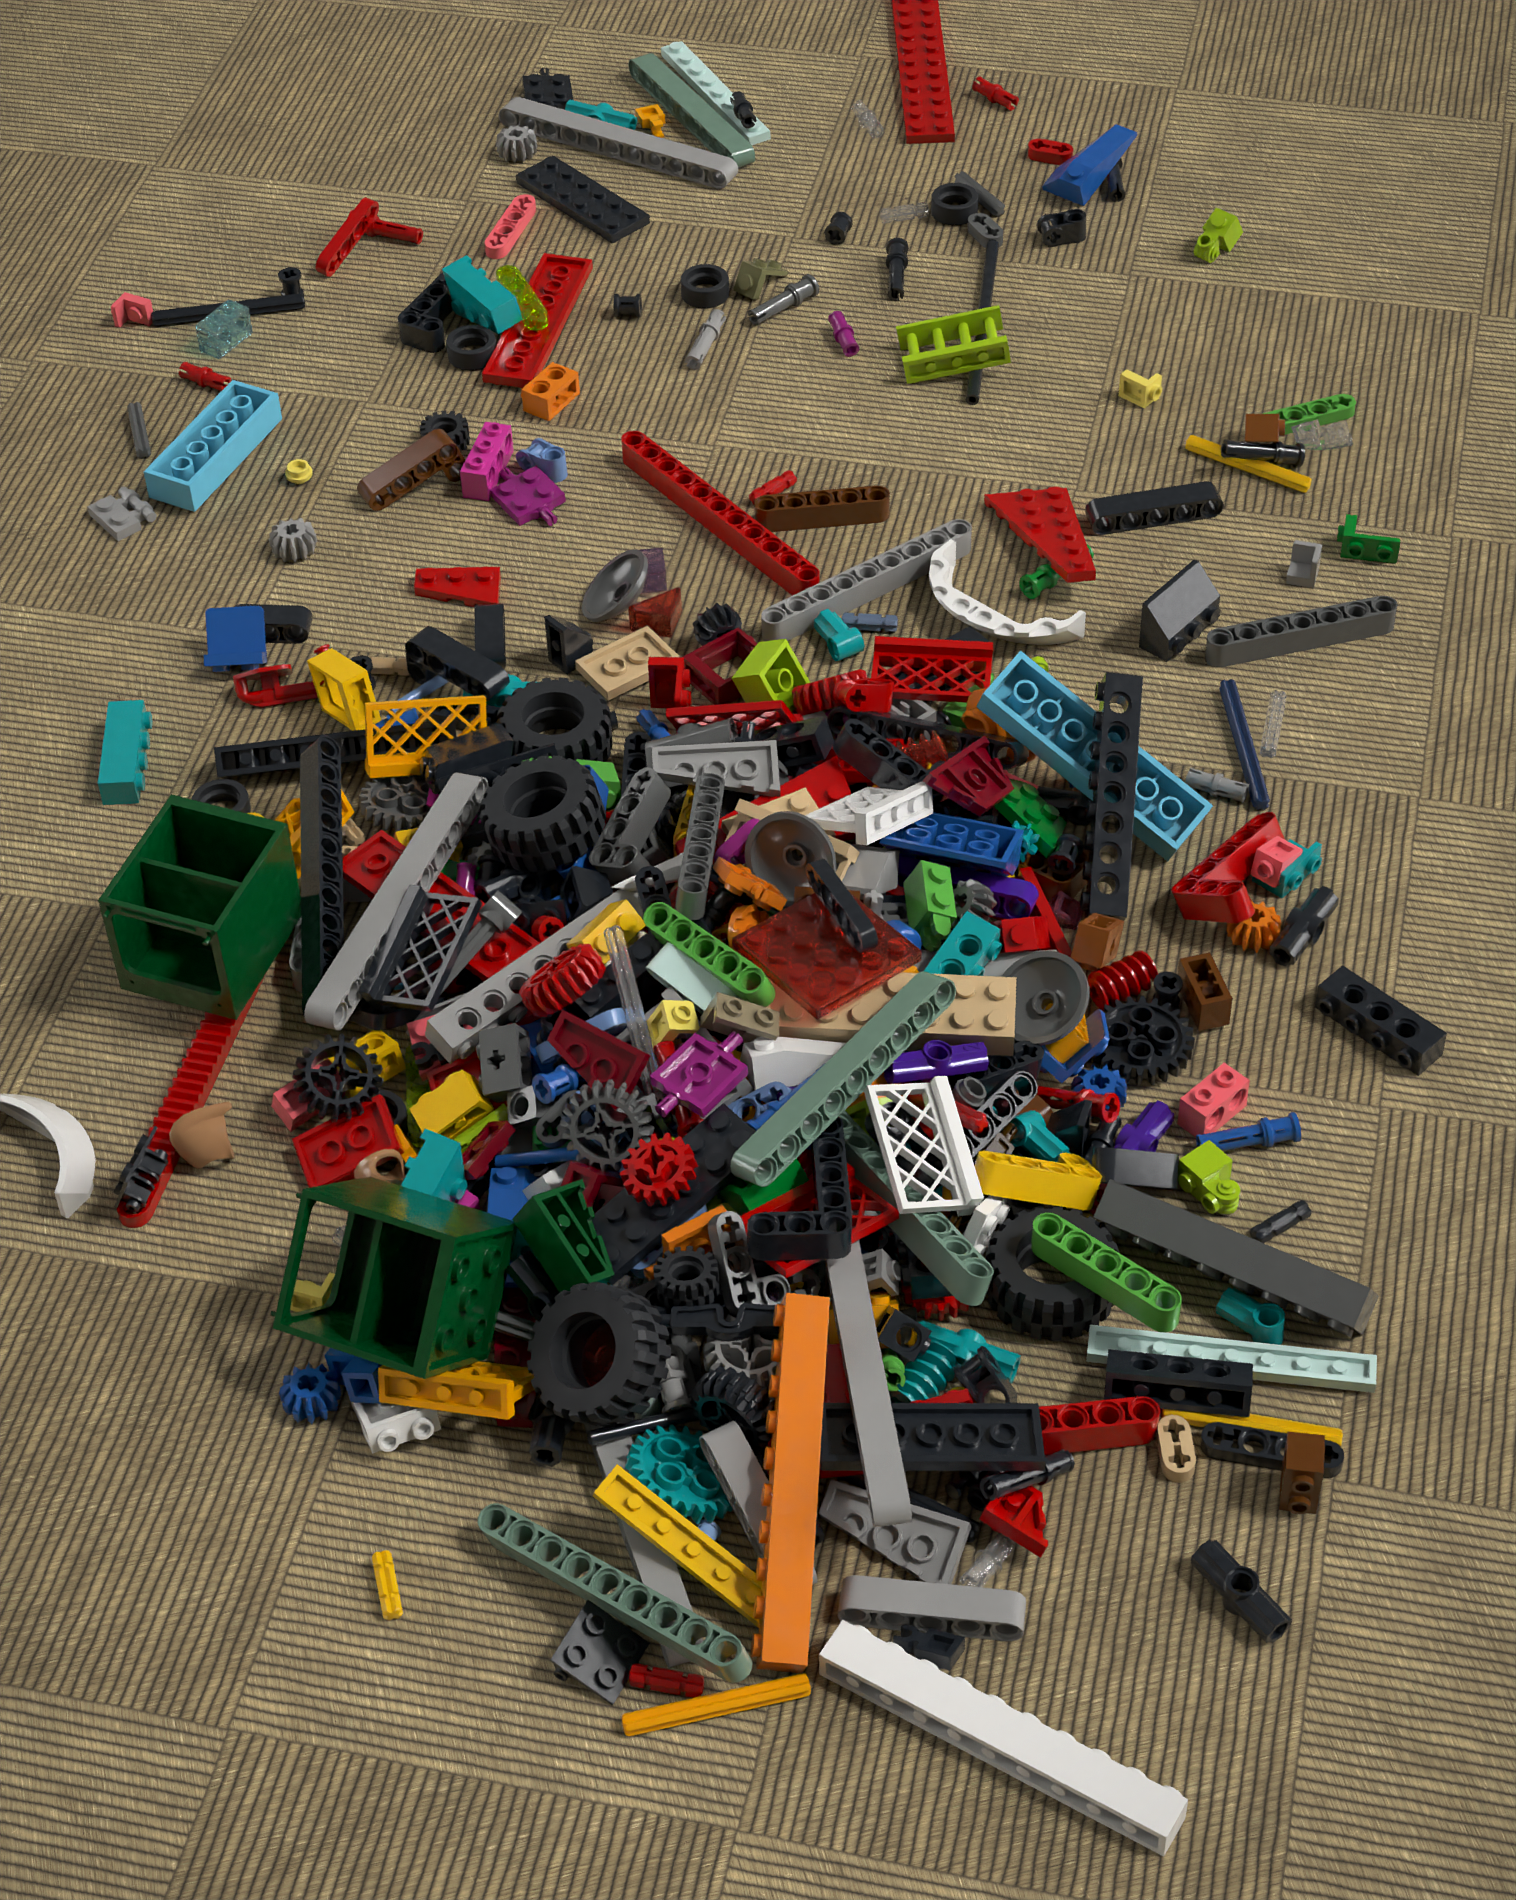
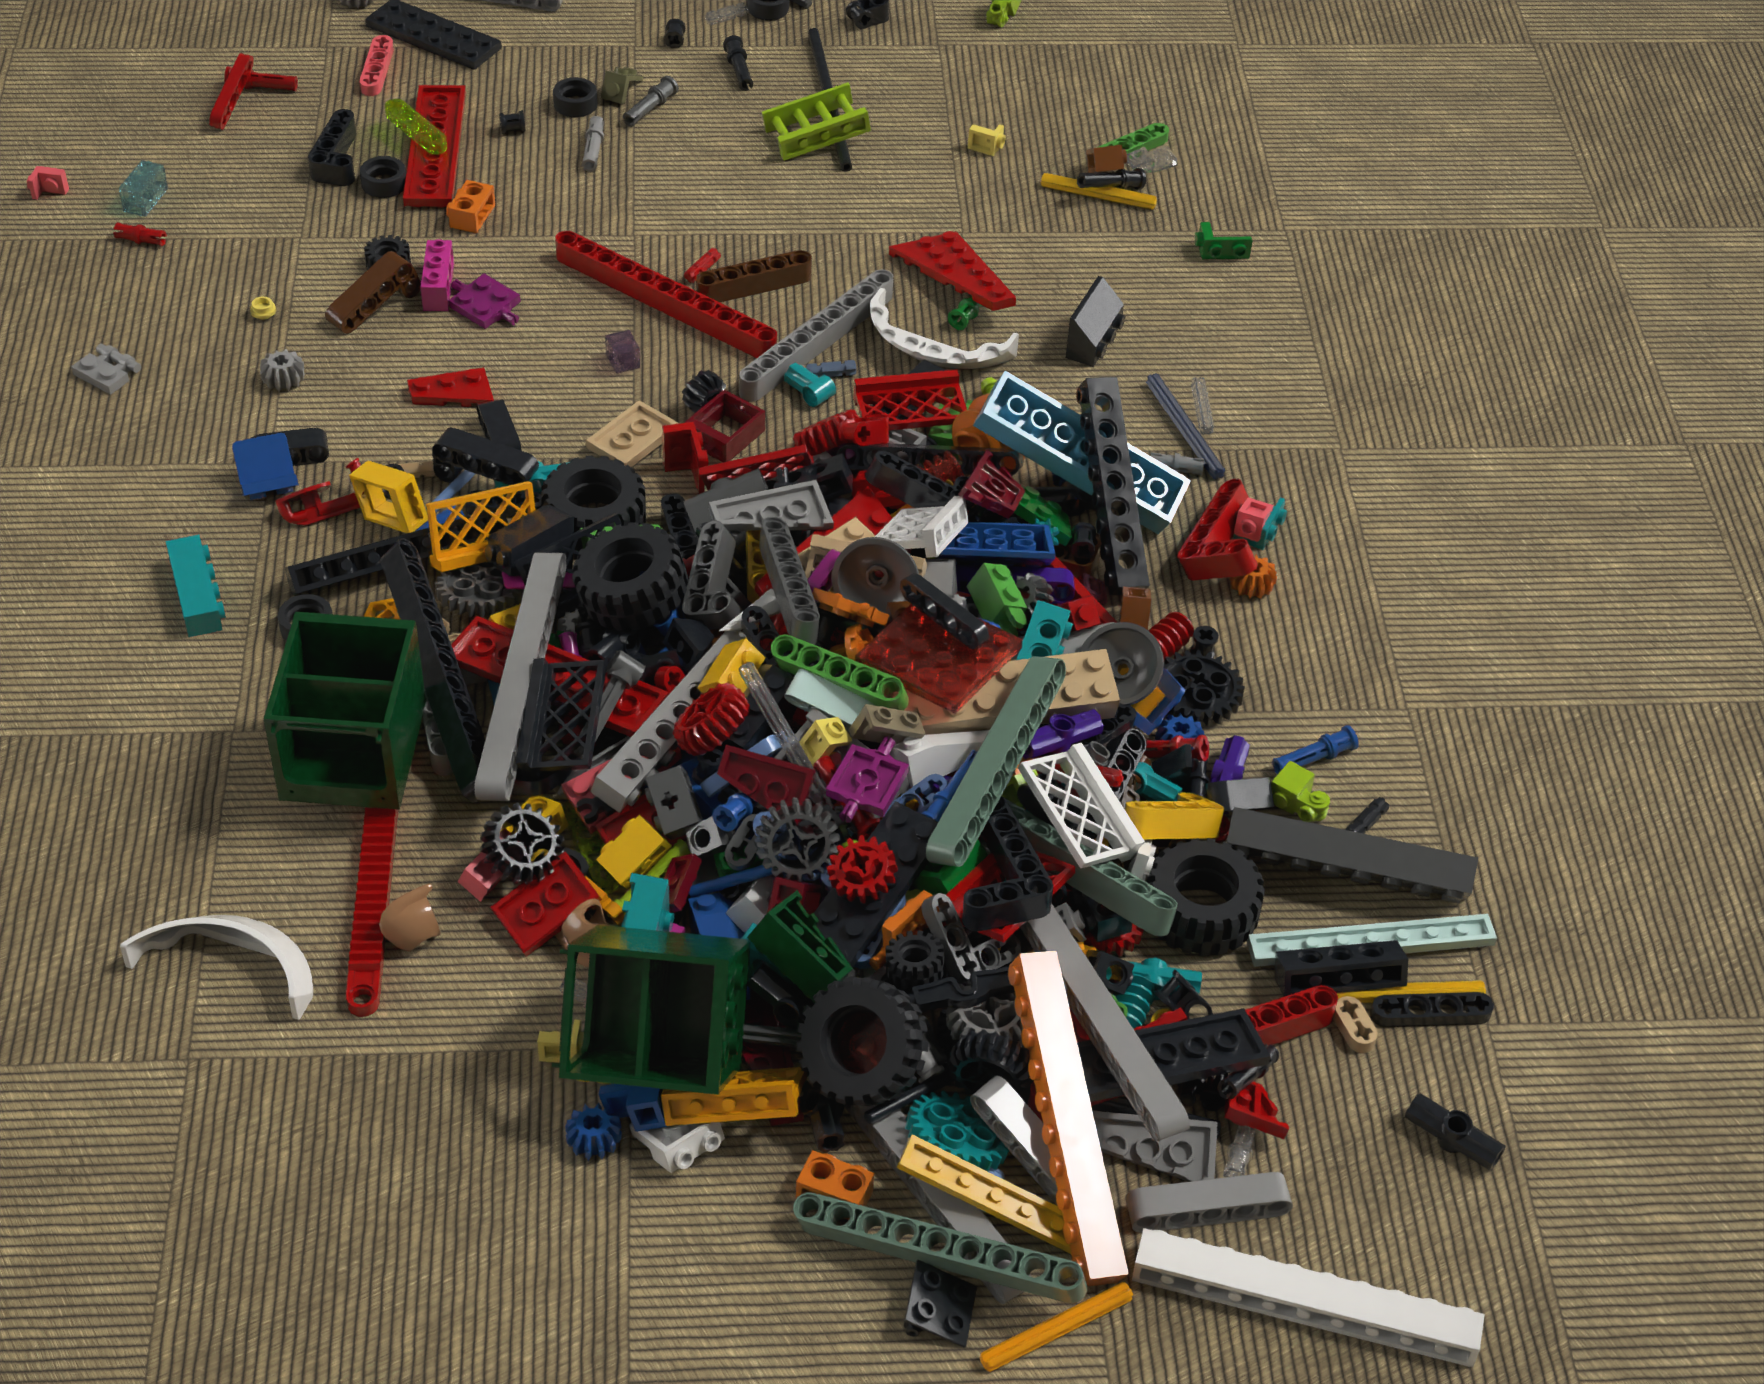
camera: 20 degrees left, 0 degrees up
(139, 430) = (94, 290): dark grey axle -> none
(140, 1174) = (367, 963): black hinge -> none
(213, 445) = (175, 295): medium azure brick -> none
(256, 306) = (120, 174): black axle -> none
(290, 281) = (191, 139): black bush -> none
(387, 1585) = (727, 1287): yellow axle -> none
(479, 298) = (378, 131): teal wedge -> none
(540, 1498) = (838, 1178): none -> orange brick
(547, 457) = (491, 263): medium blue piece -> none
(566, 643) = (573, 427): black slope -> none
(616, 586) = (600, 369): dark grey dish -> none
(652, 725) = (673, 486): blue axle -> none
(658, 613) = (643, 387): clear red slope -> none
(666, 1680) = (1006, 1315): red axle -> none
(770, 673) = (770, 424): lime brick -> none
(843, 333) = (714, 124): magenta pin -> none
(934, 1645) = (1221, 1233): black plate -> none
(984, 229) = (801, 20): dark grey beam -> none
(1106, 1272) = (1260, 886): bright green beam -> none
(1154, 508) = (1036, 238): black beam -> none
(1205, 991) = (1238, 637): reddish brown brick -> none
(1213, 1101) = (1277, 728): coral brick -> none
(1260, 1320) = (1386, 904): teal piece -> none
(1300, 631) = (1196, 325): dark grey beam -> none
(1301, 1472) = (1470, 1022): reddish brown brick -> none
(1304, 564) = (1179, 268): light grey panel -> none
(1304, 926) = (1293, 569): black piece -> none
(1380, 1020) = (1384, 637): black brick -> none

